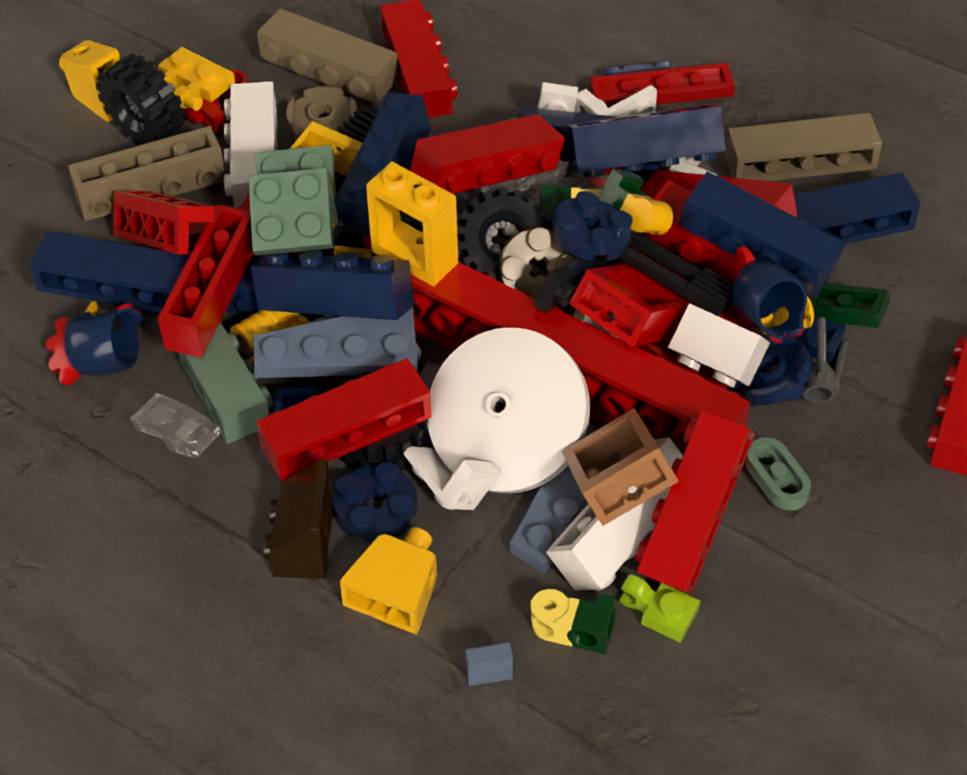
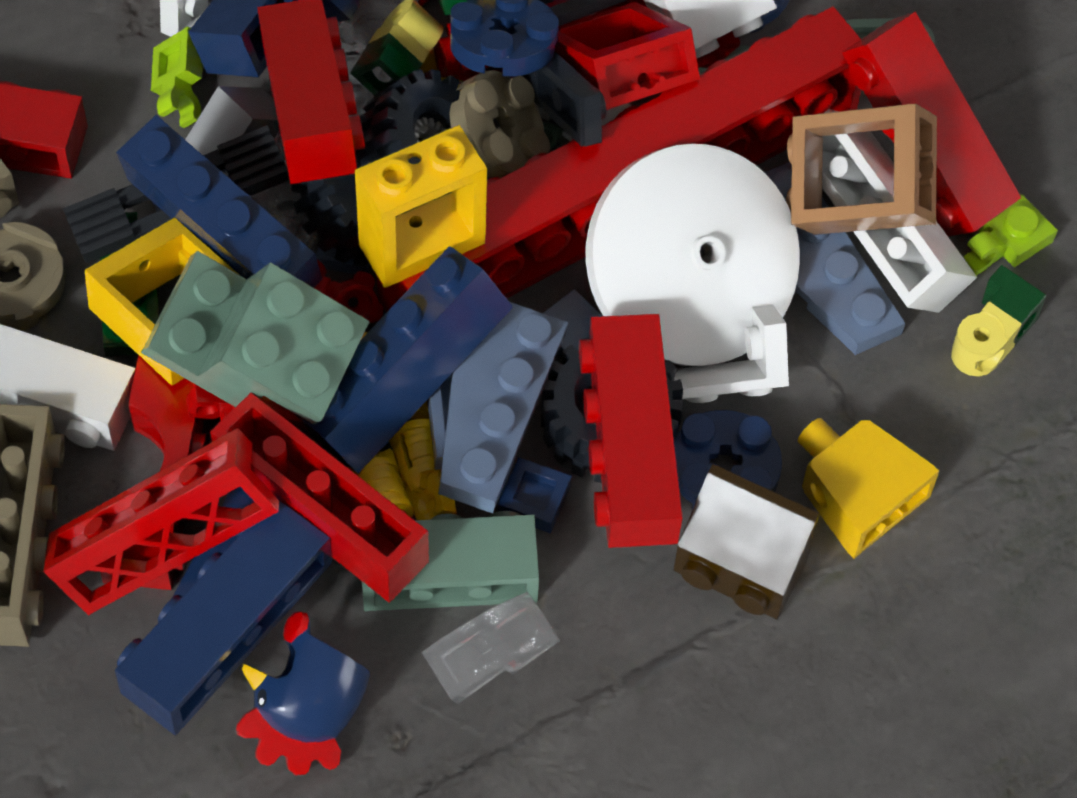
camera: 70 degrees left, 10 degrees up
(489, 664) = (1023, 430): sand blue tile -> none

